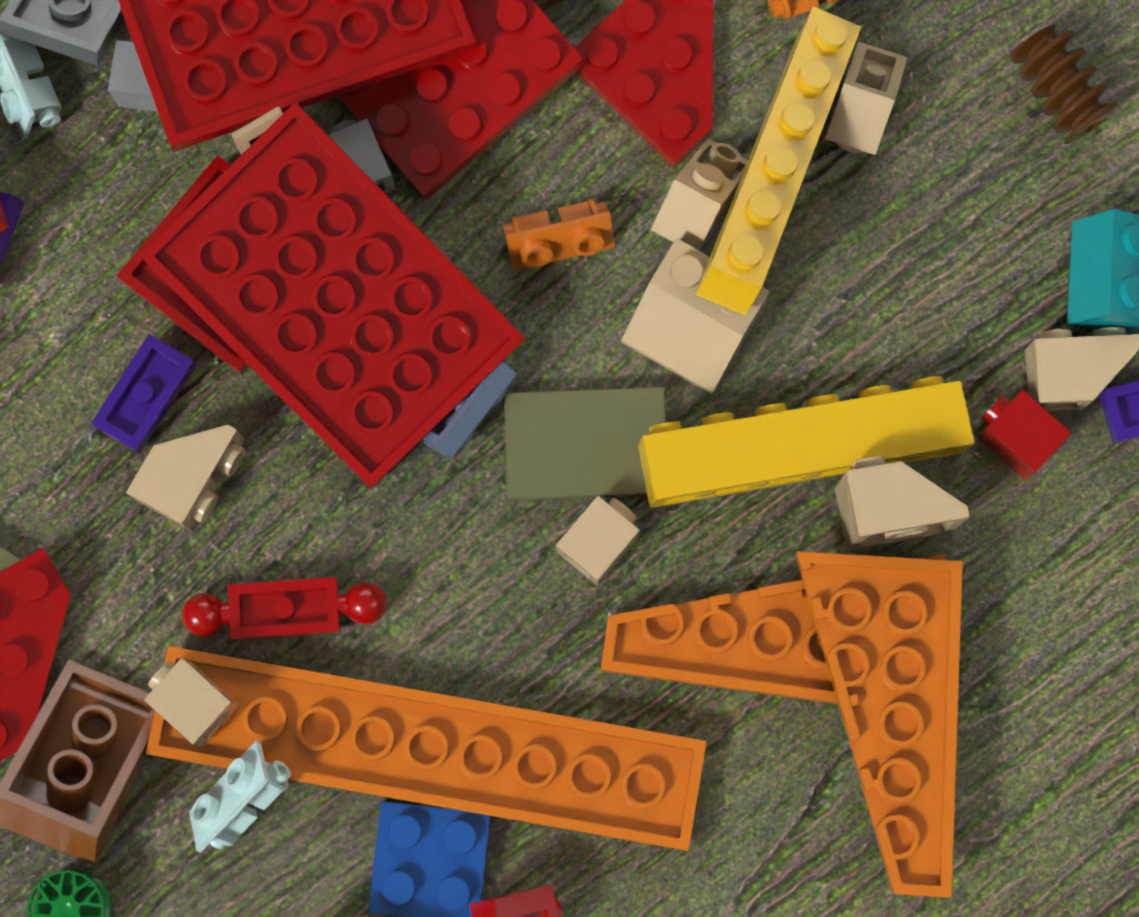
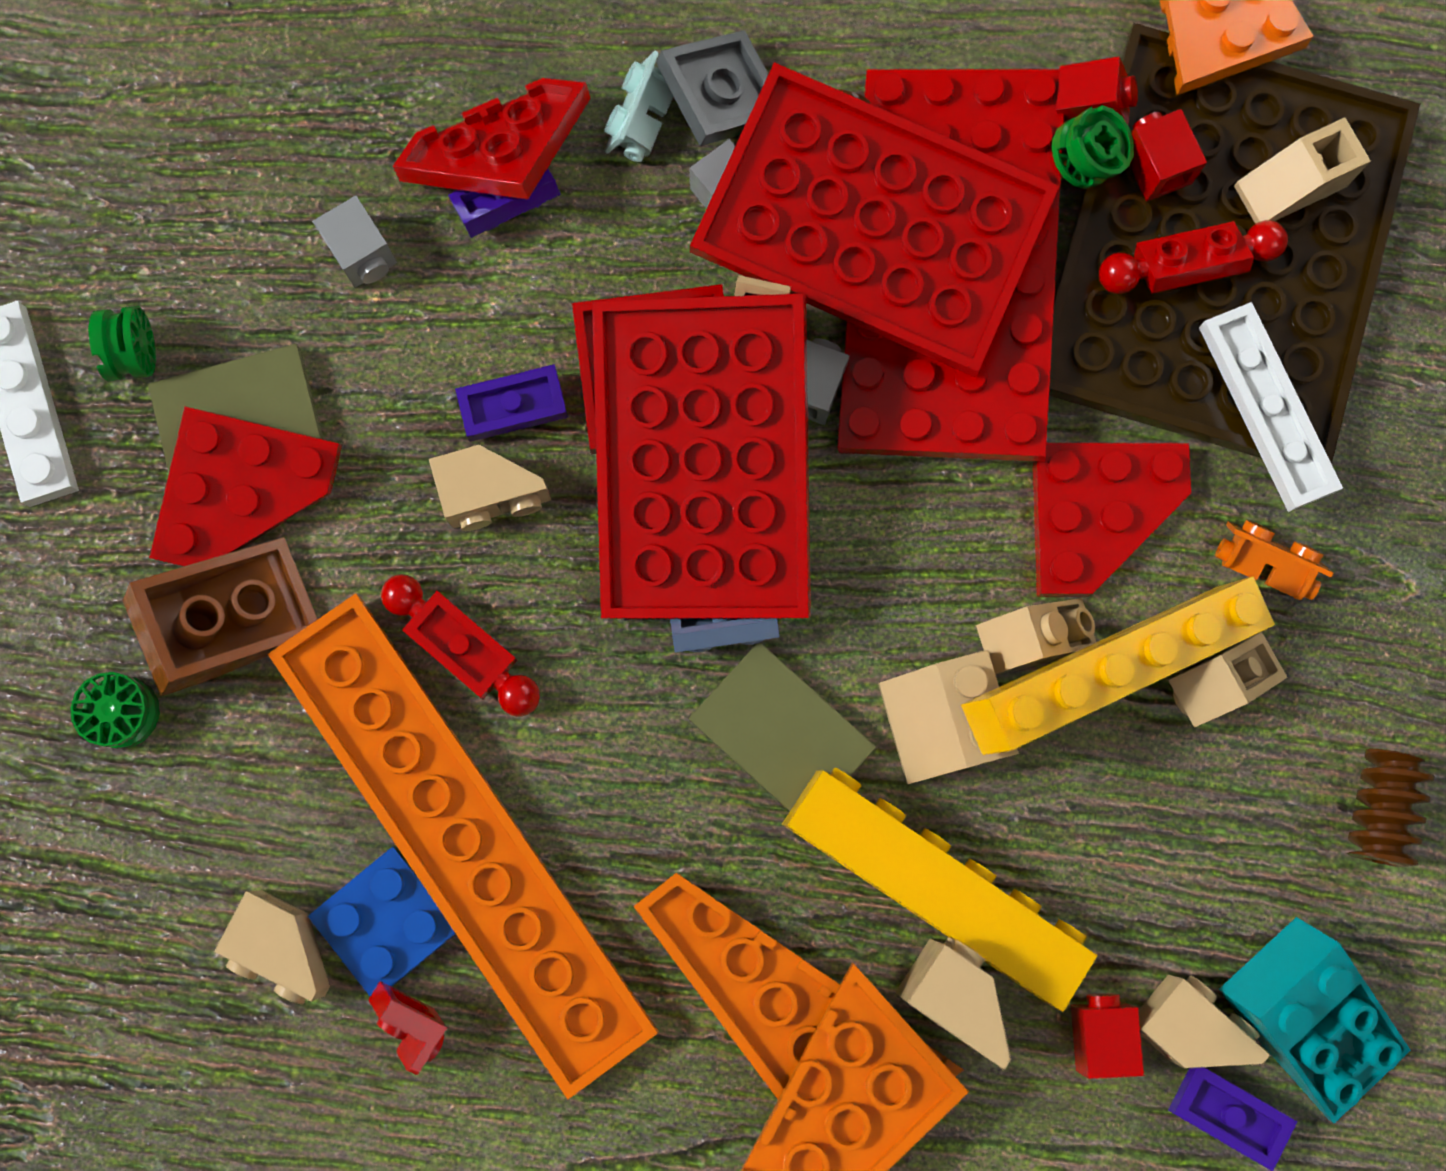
camera: 40 degrees right, 0 degrees up
(189, 701) = (327, 647): tan brick -> none
(222, 812) = (295, 745): light aqua hinge -> none
(582, 231) = (926, 579): orange hinge -> none
(599, 538) = (724, 811): tan brick -> none

